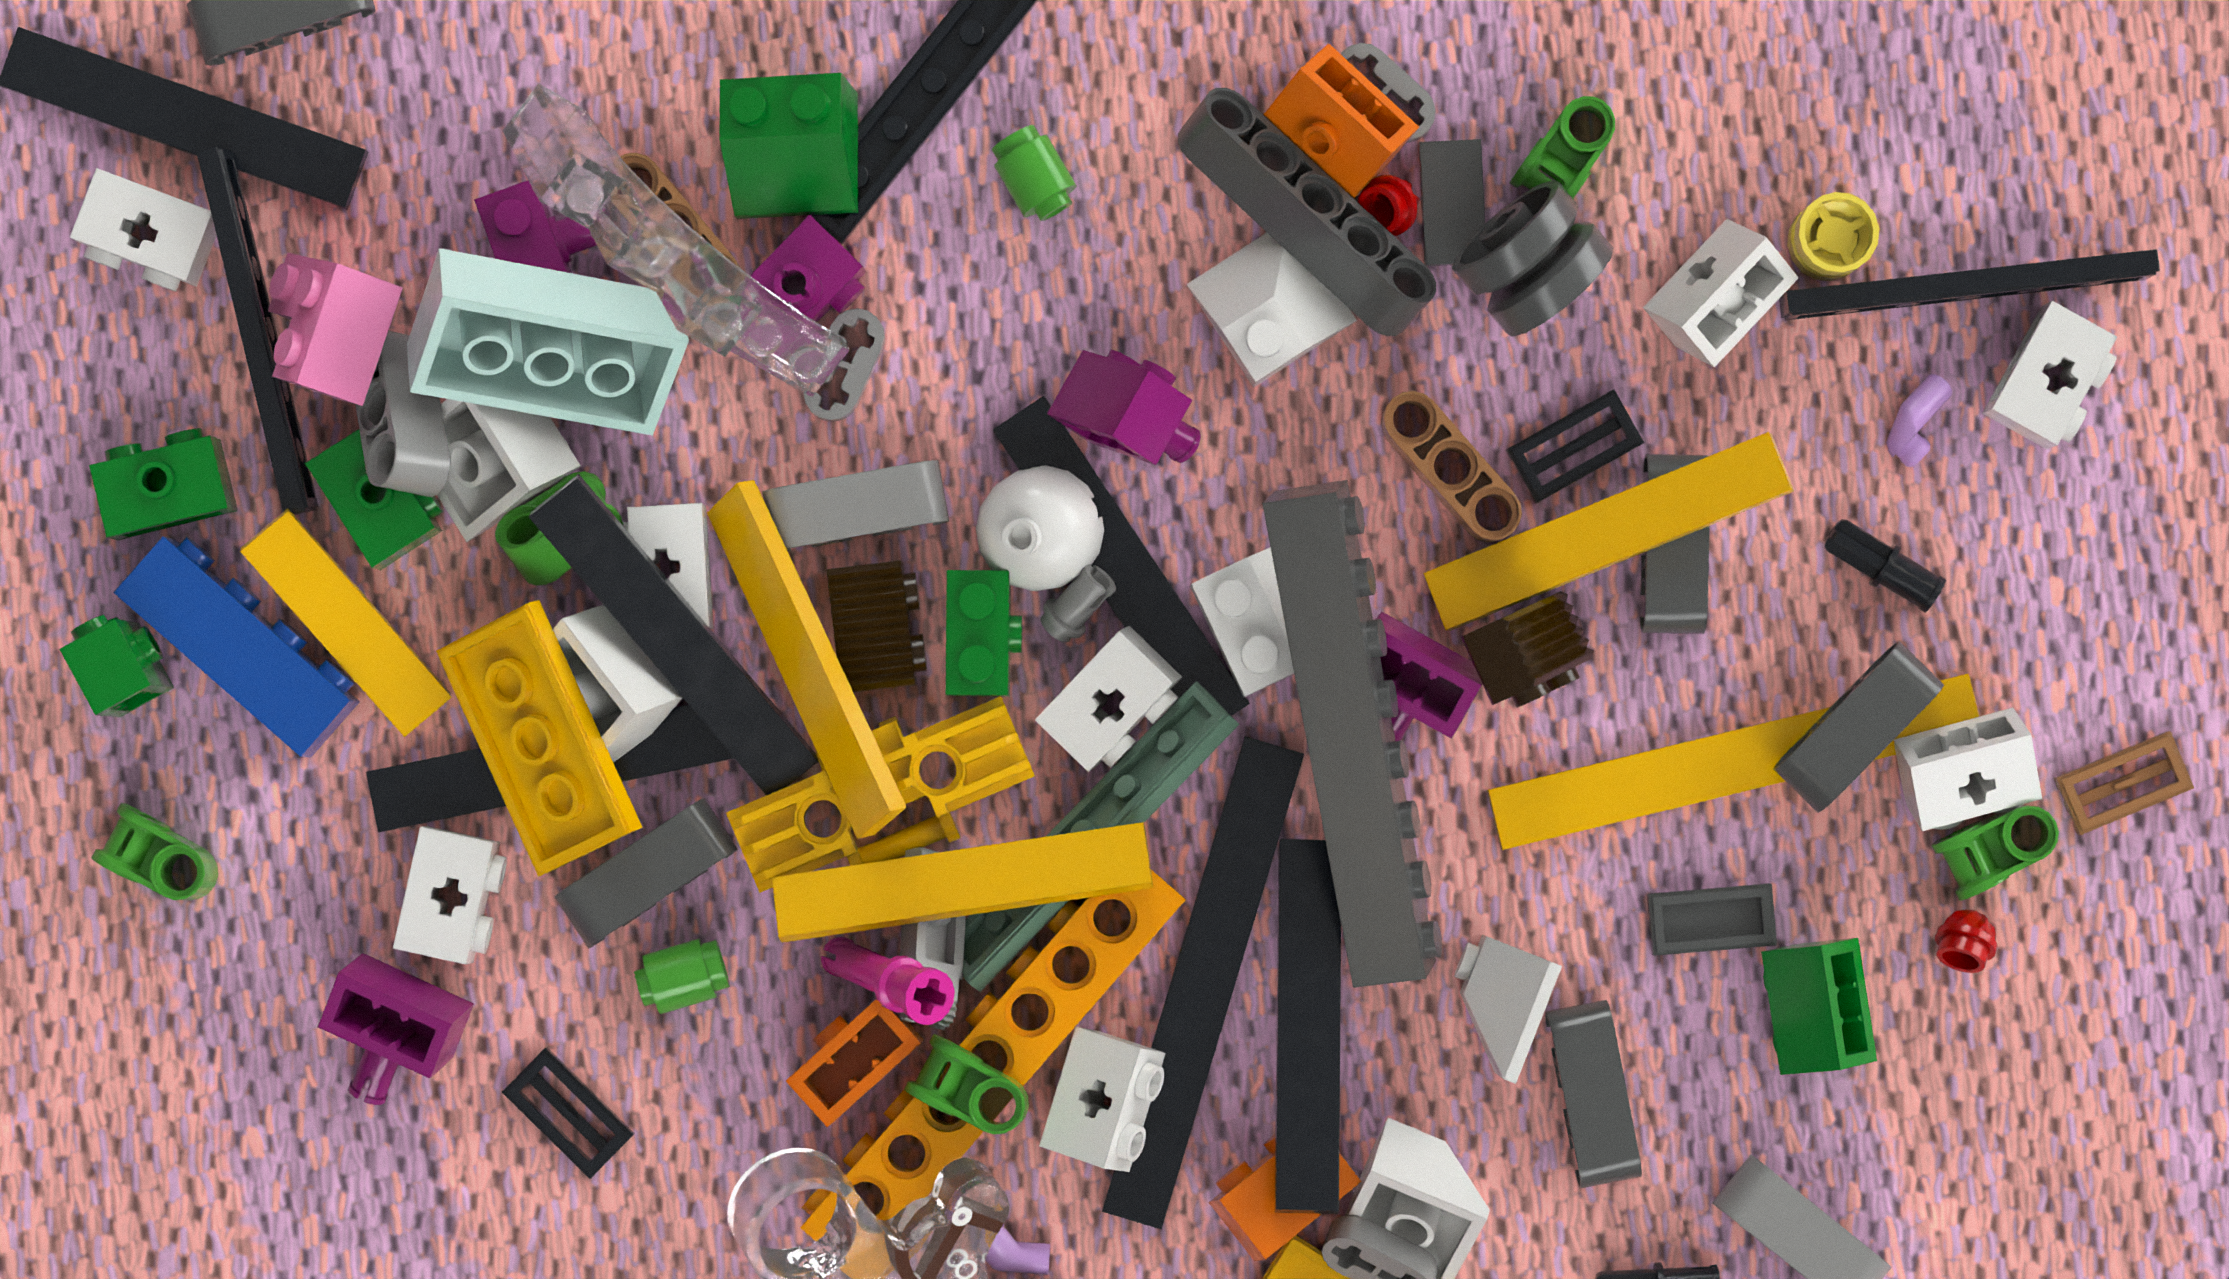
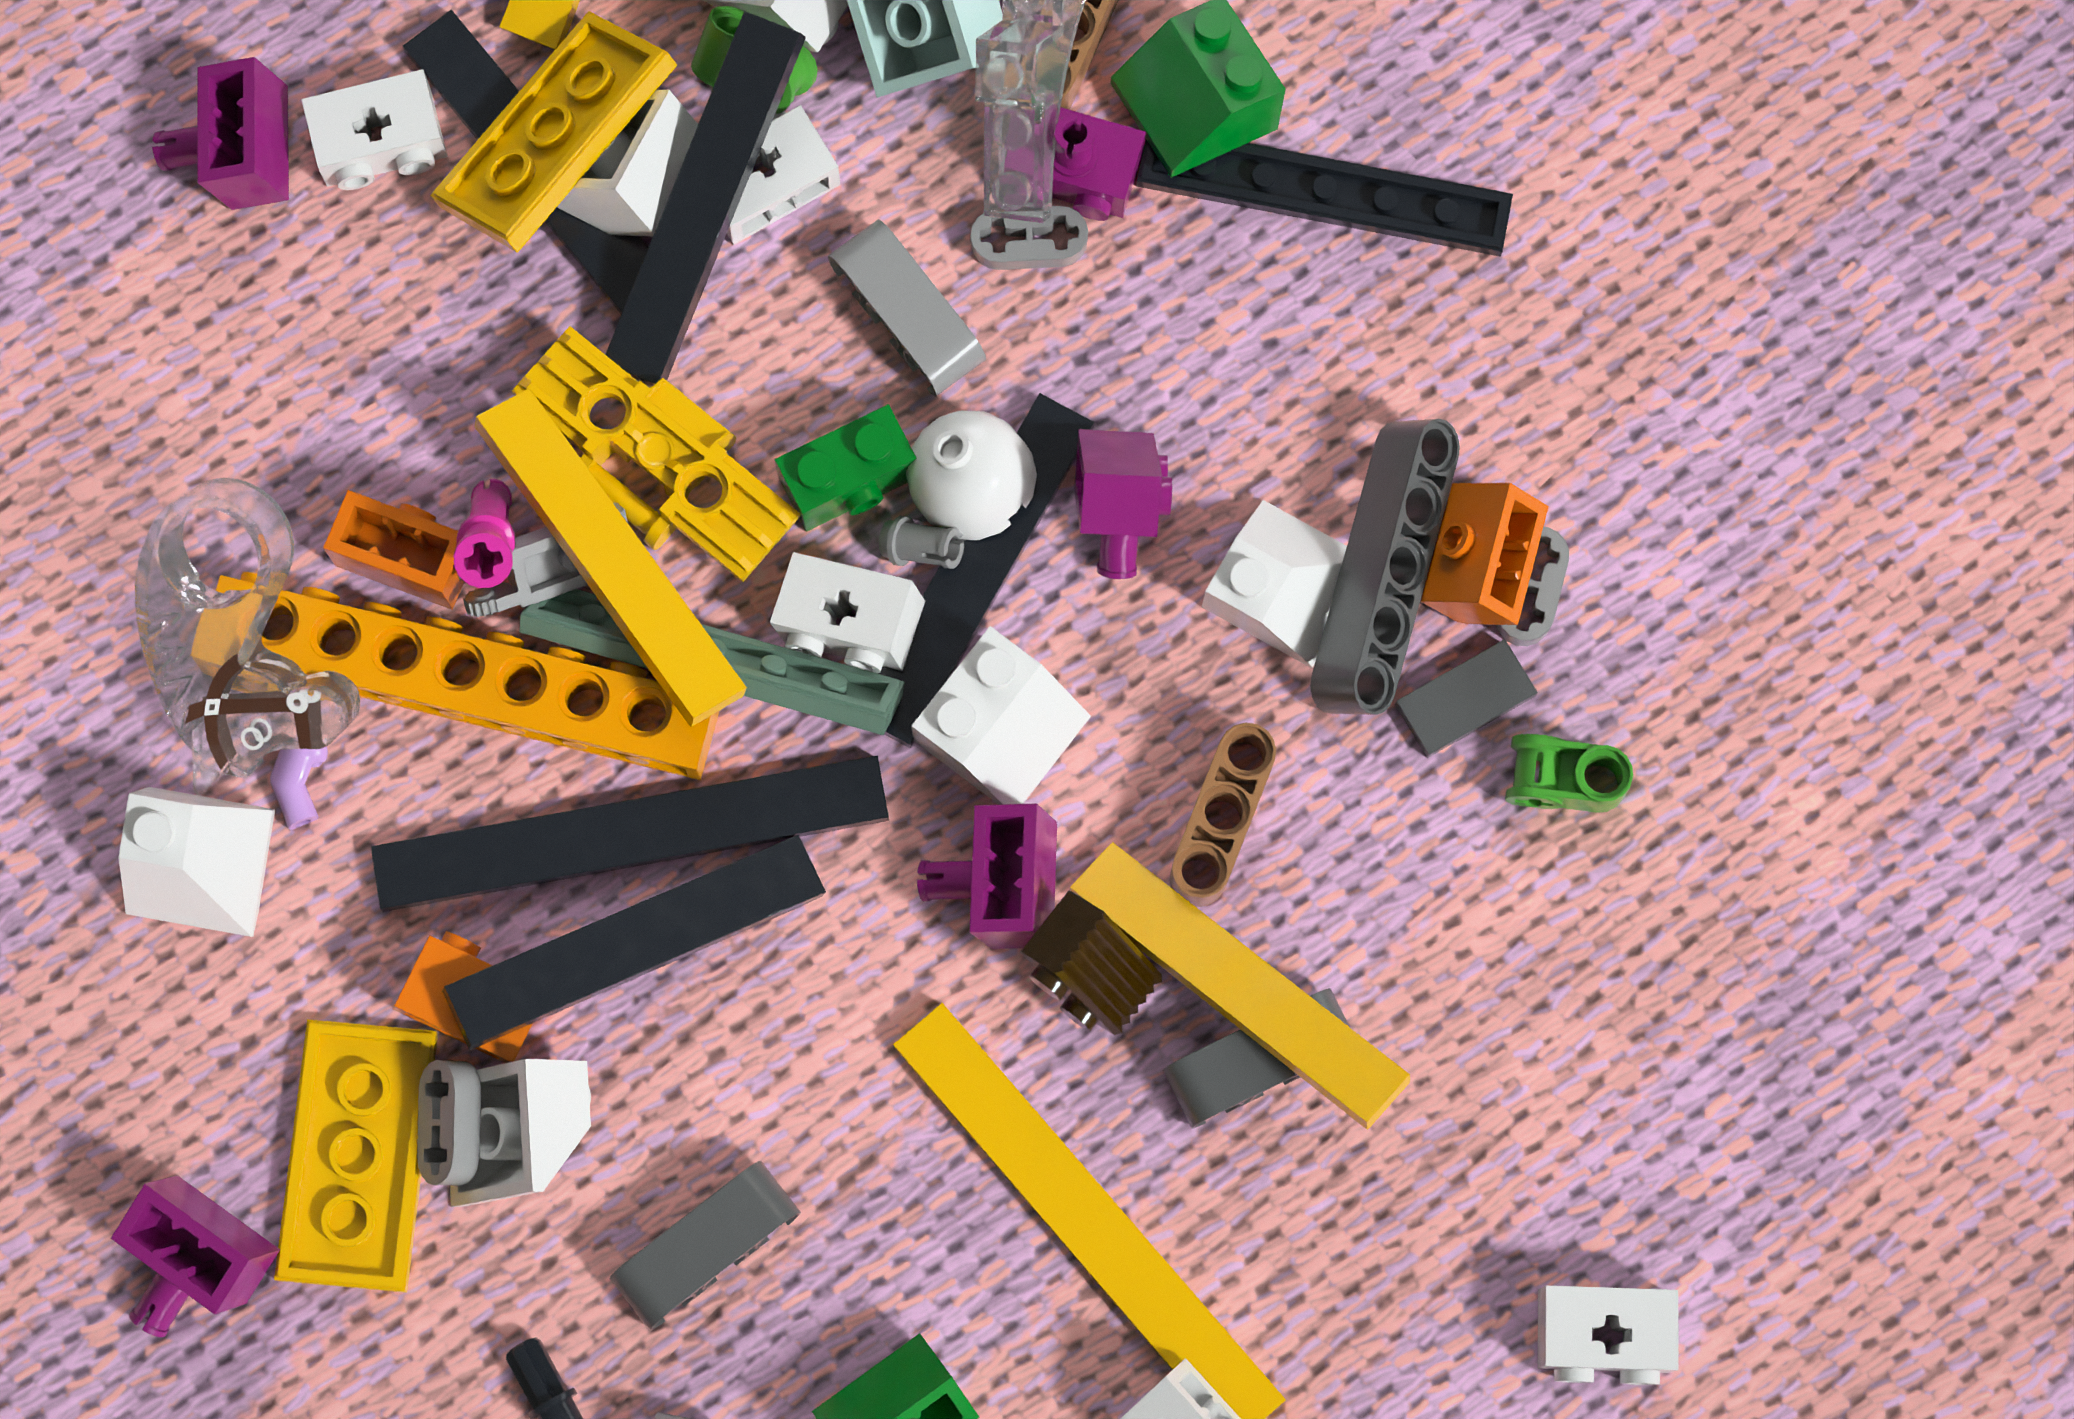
camera: 60 degrees right, 10 degrees down
(585, 1095) = (214, 380): black tile -> none
(646, 872) = (483, 286): dark grey beam -> none
(682, 975) = (403, 366): bright green brick -> none
(806, 659) = (742, 324): yellow tile -> none
(874, 625) = (806, 376): dark brown brick -> none
(965, 1086) = (421, 644): bright green piece -> none
(1034, 173) = (1289, 313): bright green brick -> none
(1079, 1119) = (473, 791): white brick -> none
(1351, 732) = (925, 836): dark grey brick -> none
(1390, 203) = (1434, 638): red plate -> none
(1505, 999) = (750, 1112): white slope -> none
(1529, 471) = (1290, 944): black tile -> none
(1533, 258) = (1452, 785): dark grey wheel -> none
(1711, 919) = (928, 1276): dark grey tile -> none
(1721, 292) = (1516, 977): white brick -> none
(1833, 236) = (1625, 1055): light yellow wheel -> none
(1858, 726) = (1180, 1314): dark grey beam -> none
(1884, 564) = (1346, 1266): black axle -> none
(1913, 415) = (1497, 1220): lavender arm -> none
(1969, 285) = (1651, 1210): black tile -> none

